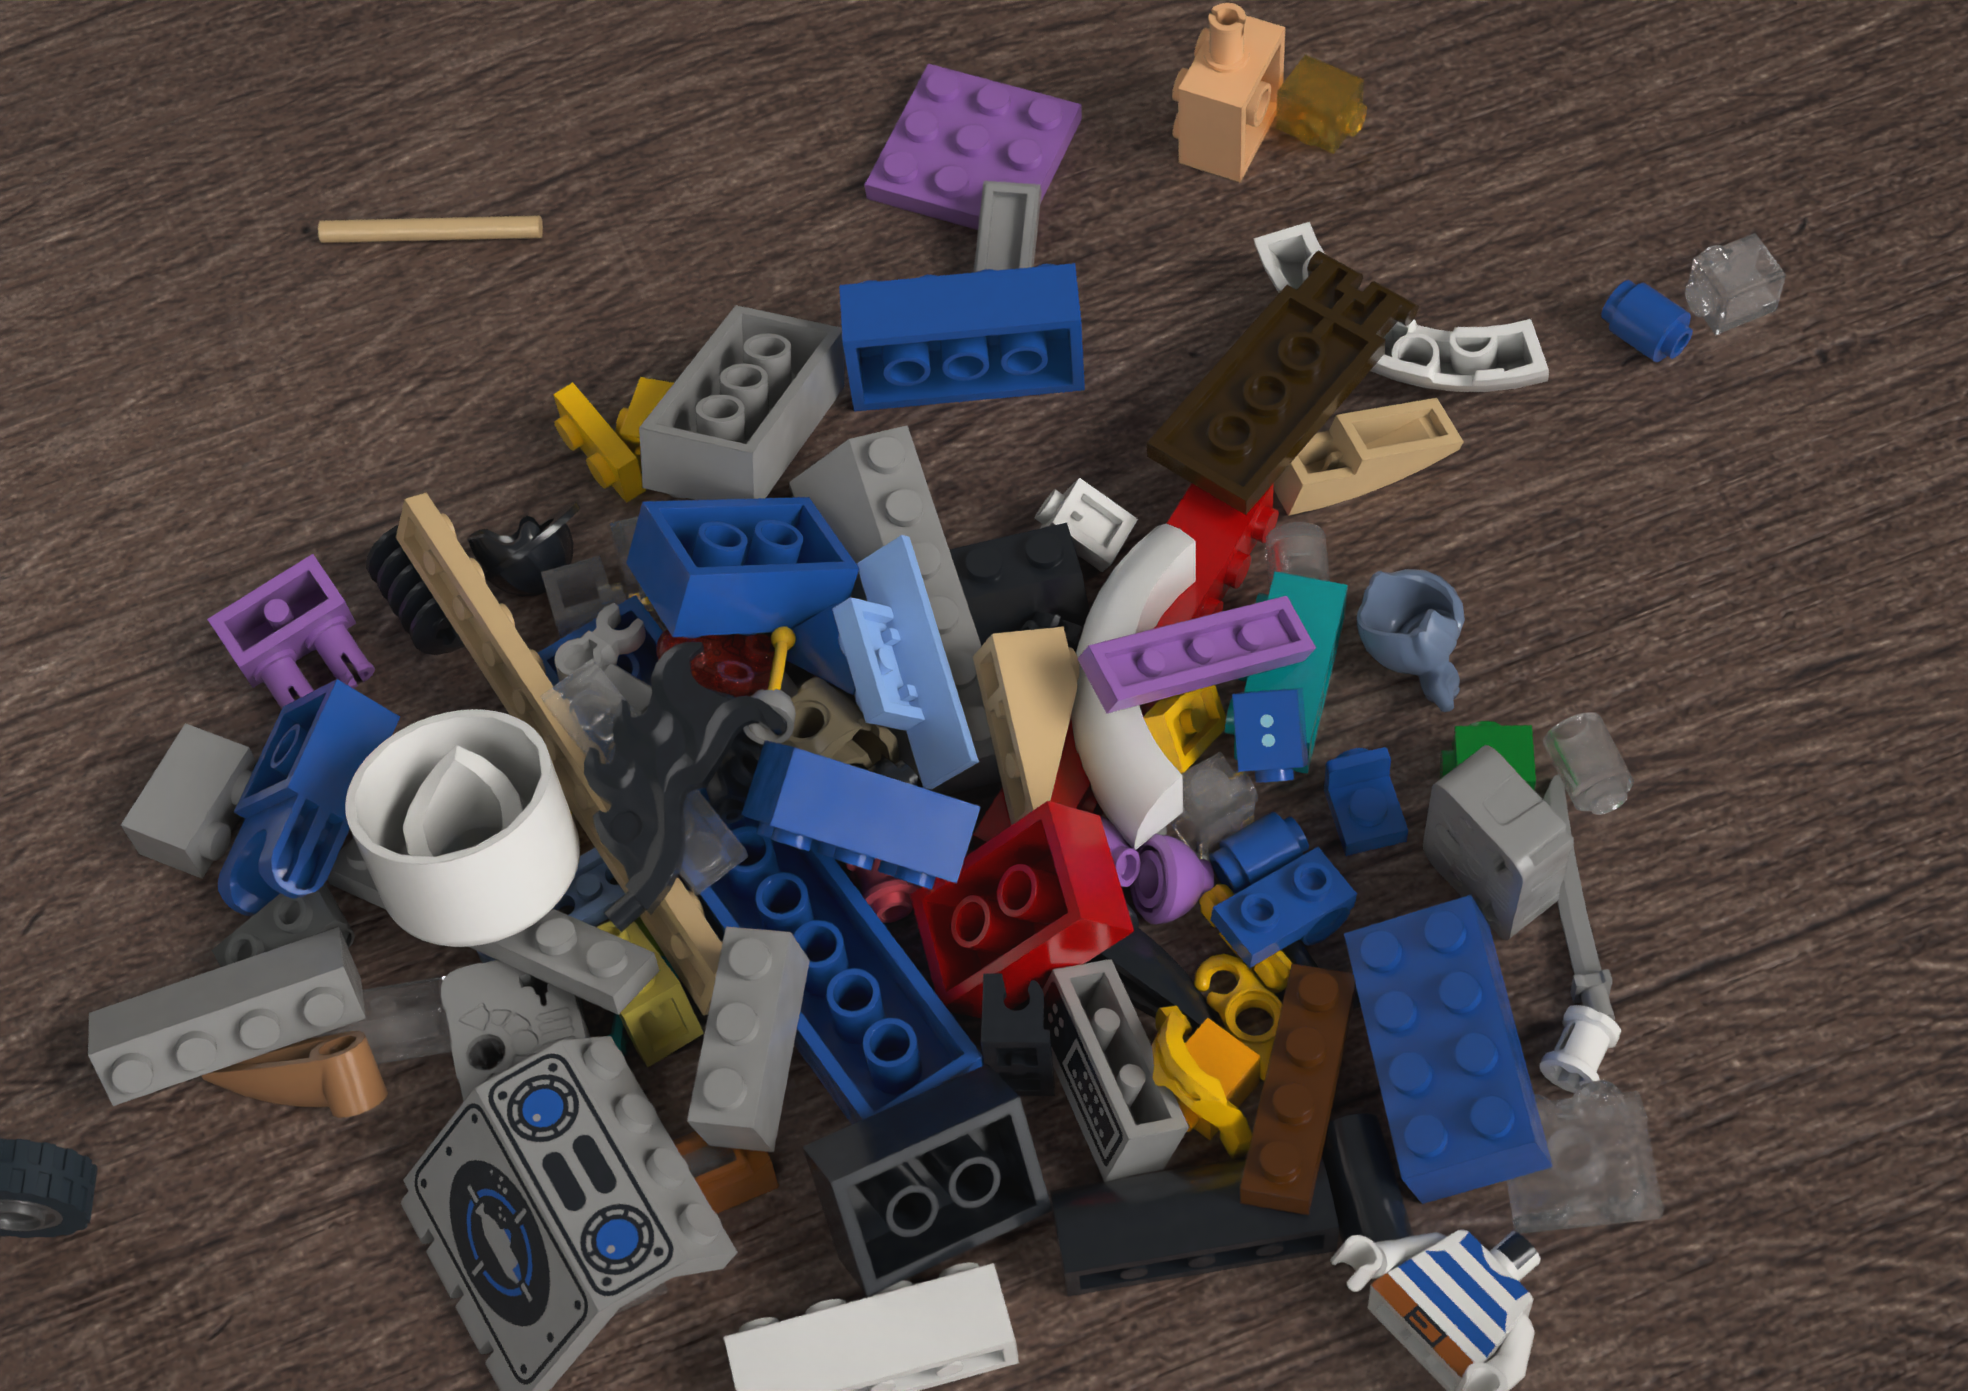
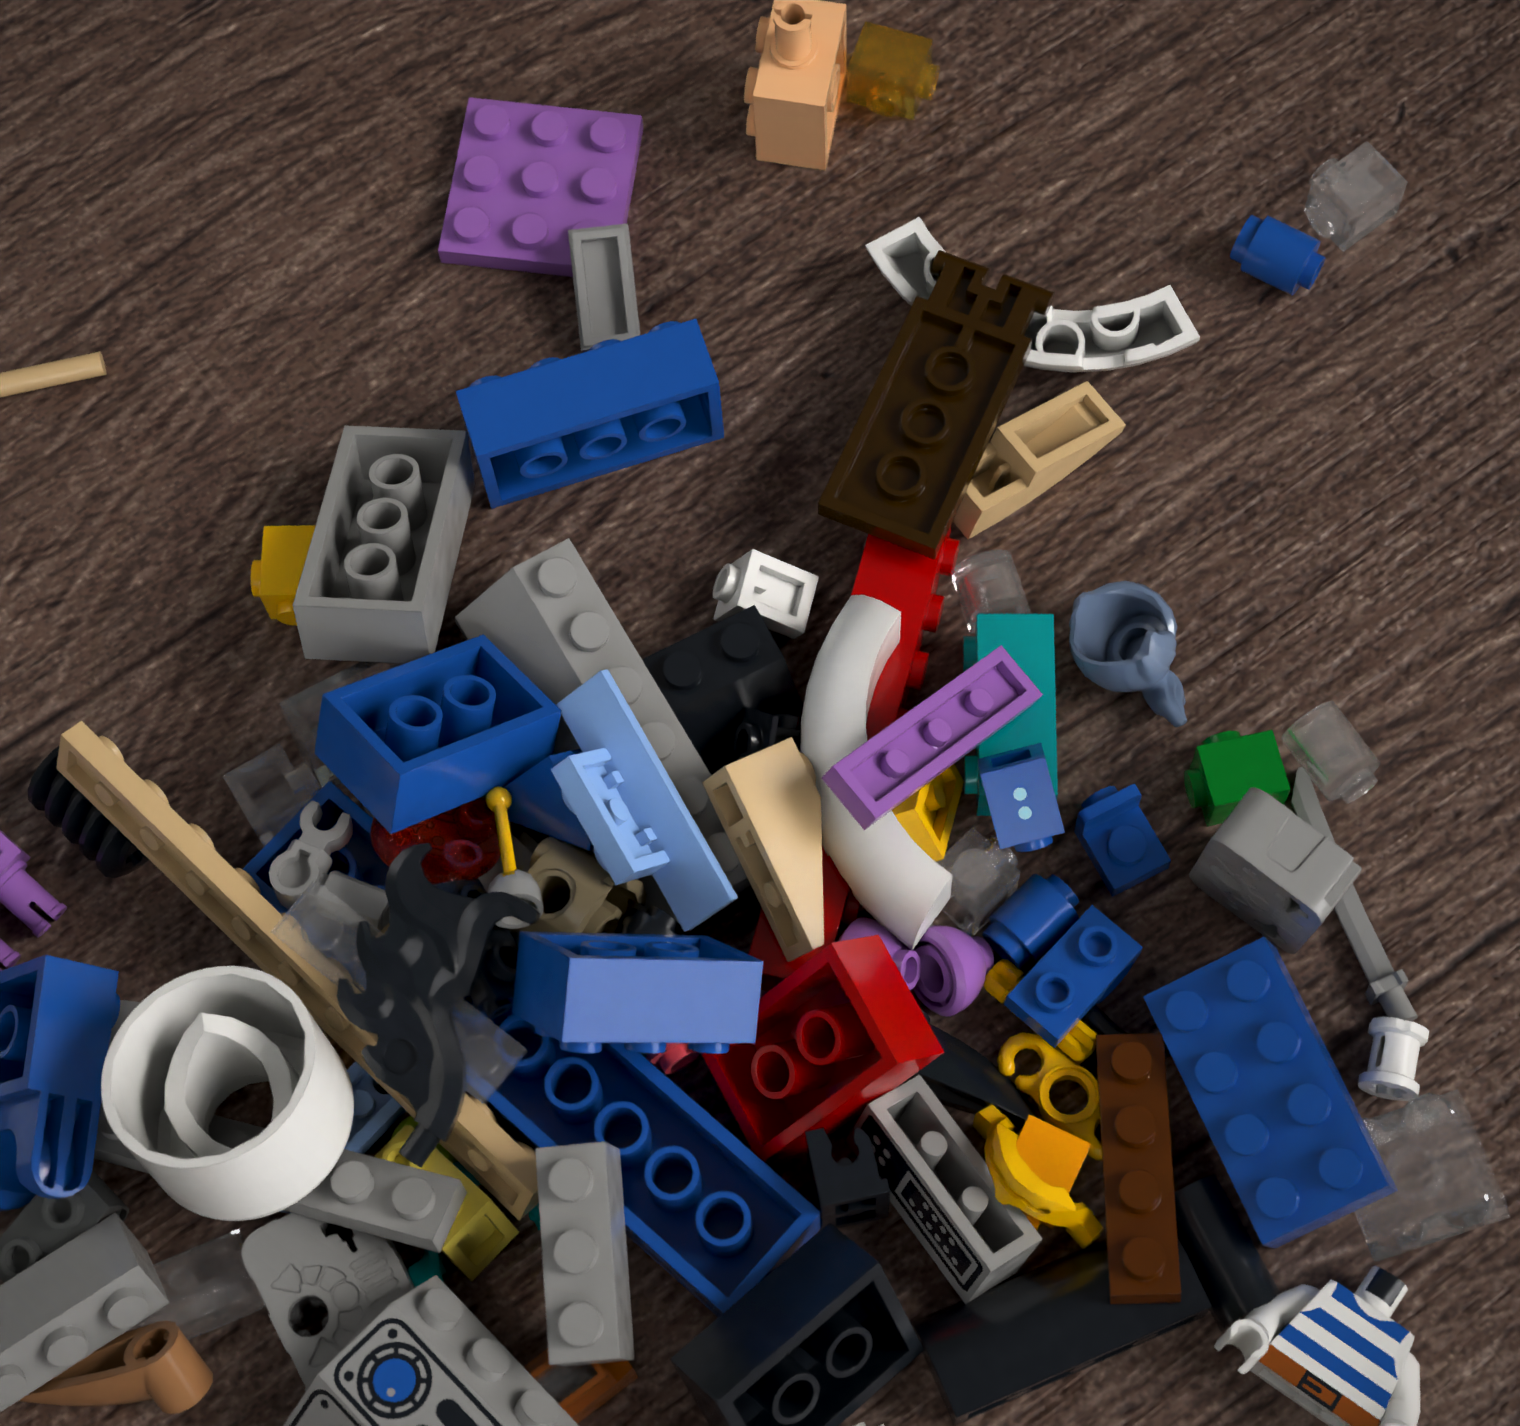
camera: 15 degrees left, 10 degrees up
(517, 560) = (197, 747): black piece -> none
(607, 454) = (251, 618): yellow plate -> none

